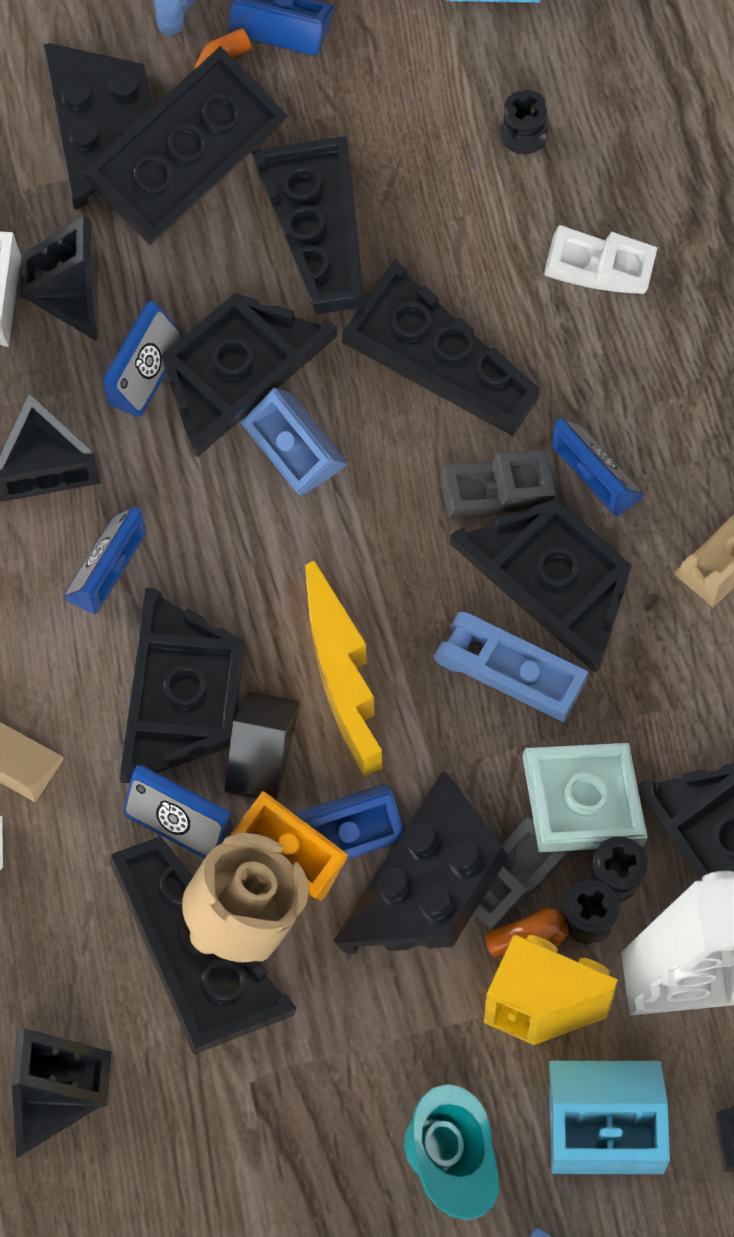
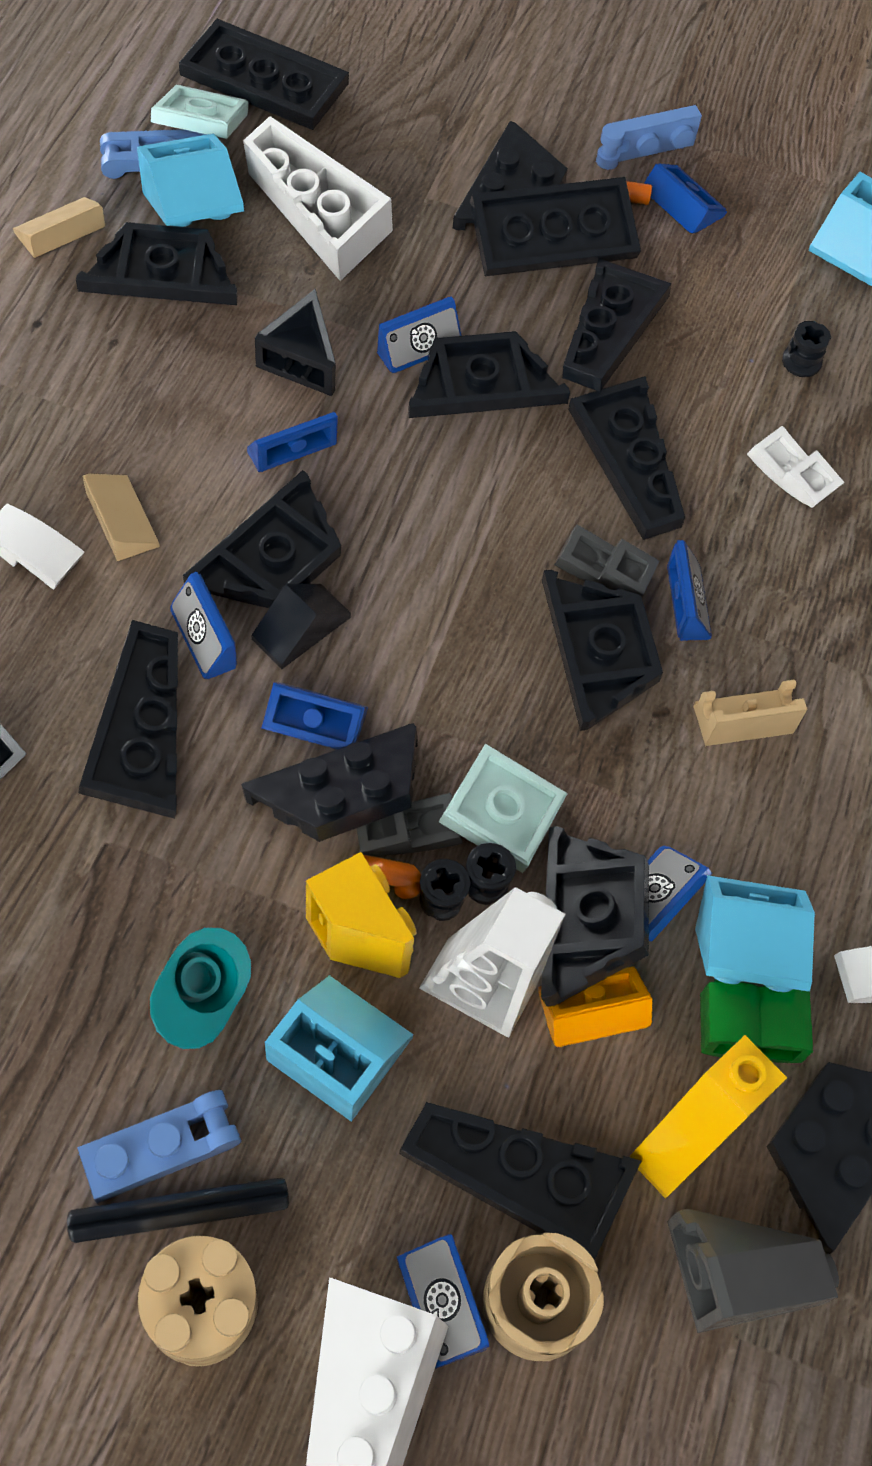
camera: 25 degrees right, 5 degrees down
(64, 276) = (413, 258): black slope -> none
(244, 899) = (194, 705): tan brick -> none
(293, 441) = (484, 449): medium blue slope -> none
(301, 842) = (261, 698): light orange slope -> none
(339, 655) = (397, 600): yellow slope -> none
(512, 666) = (522, 687): medium blue plate -> none

